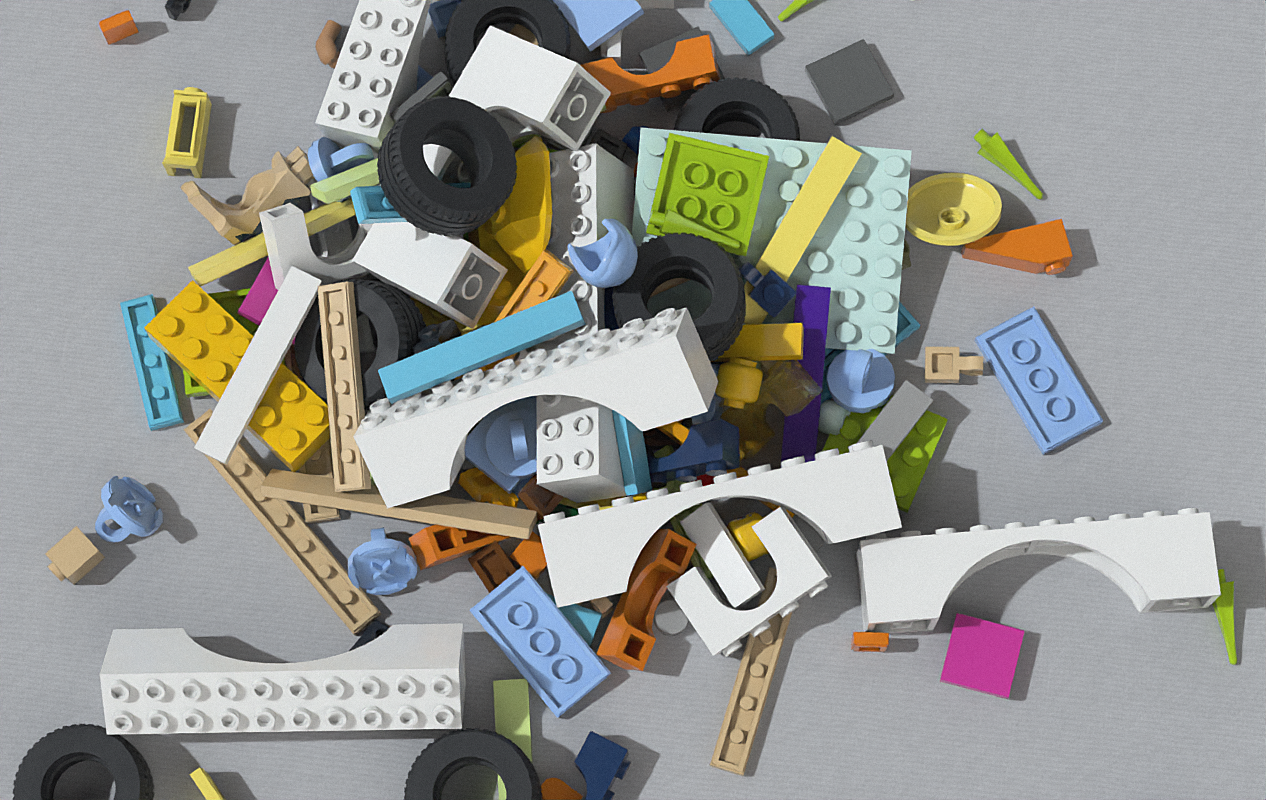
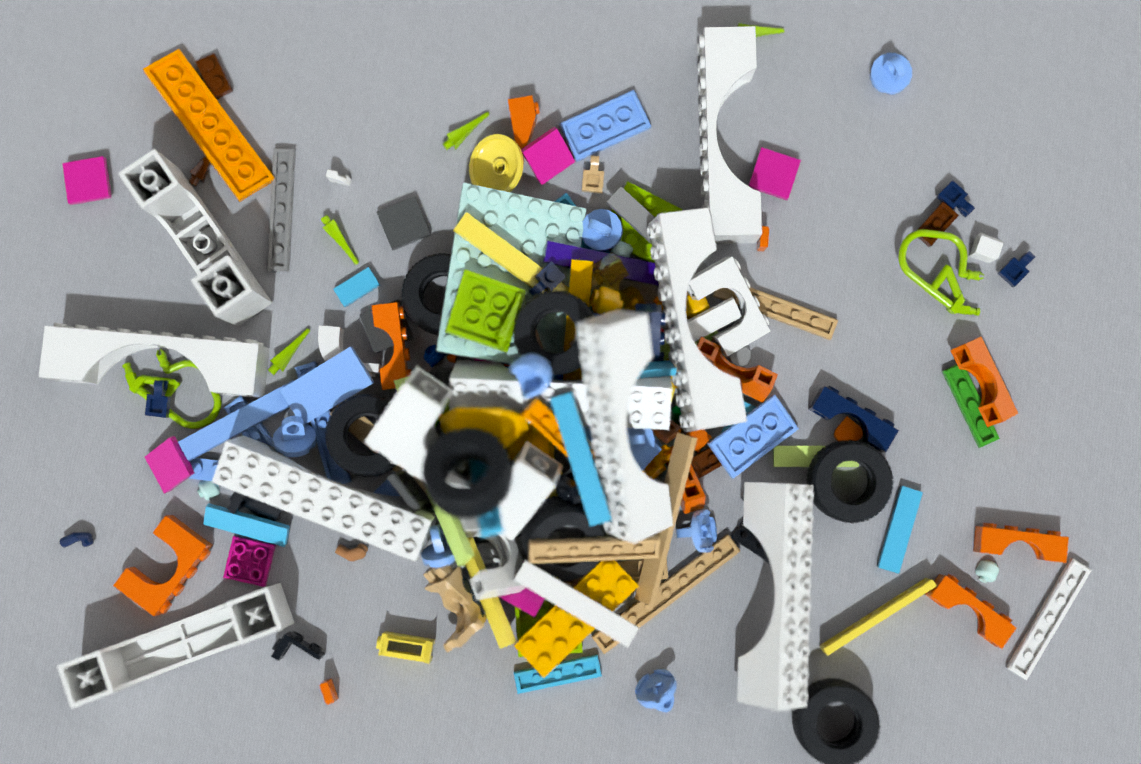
camera: 85 degrees left, 10 degrees up
(73, 556) = (683, 726): tan brick -> none
(975, 288) = (548, 155): none -> dark pink tile

